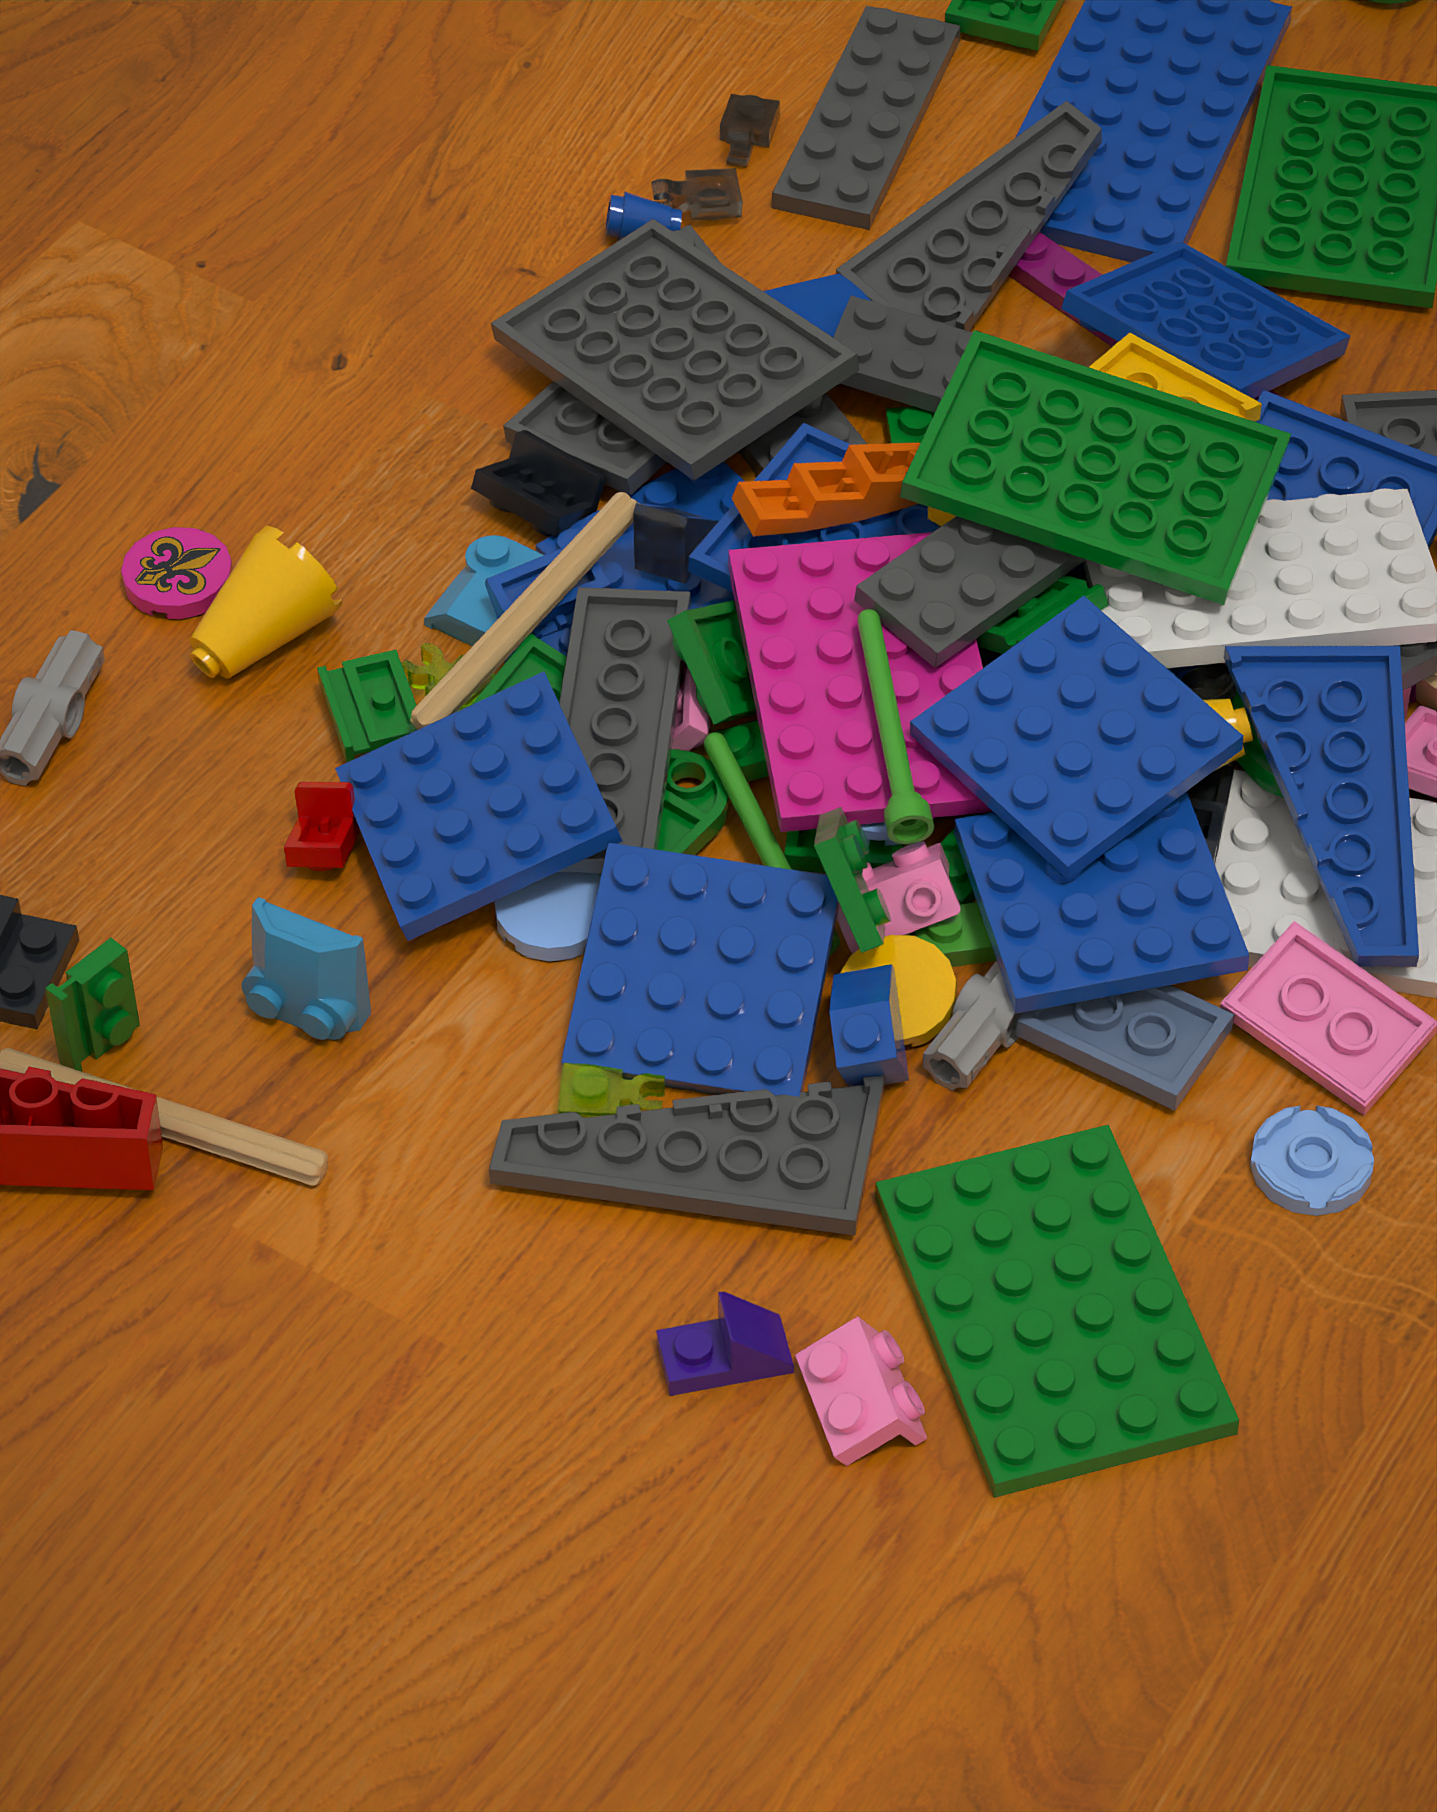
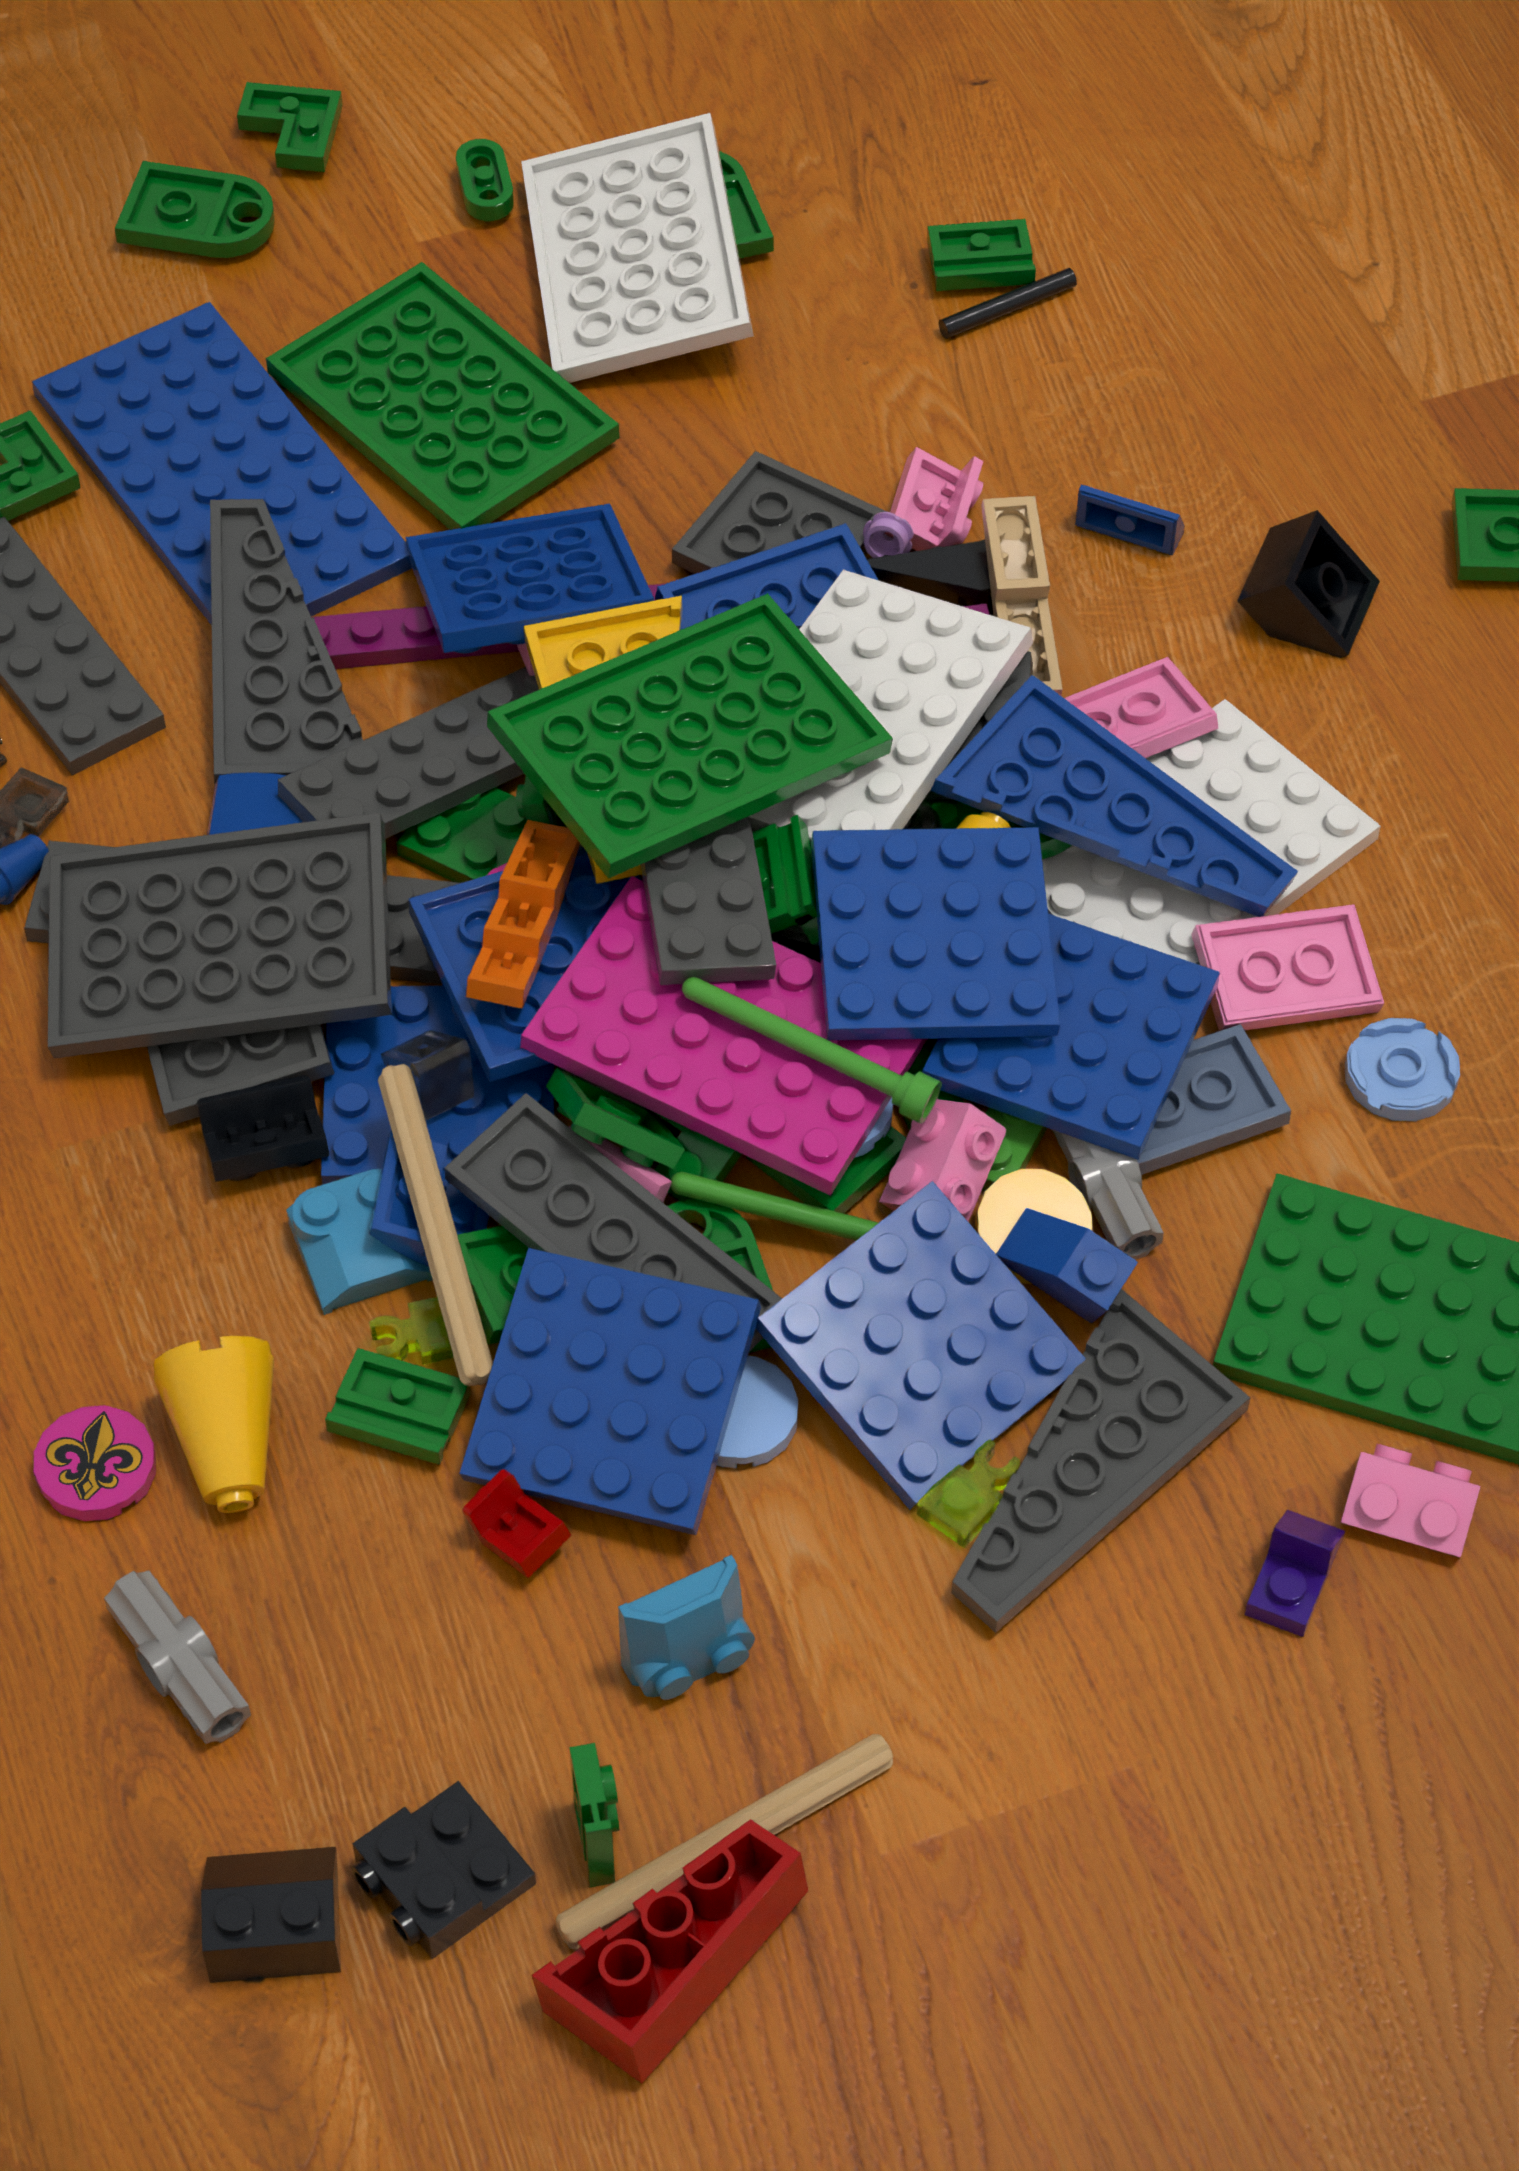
camera: 55 degrees left, 5 degrees up
(842, 854) = (937, 1165): green plate -> none

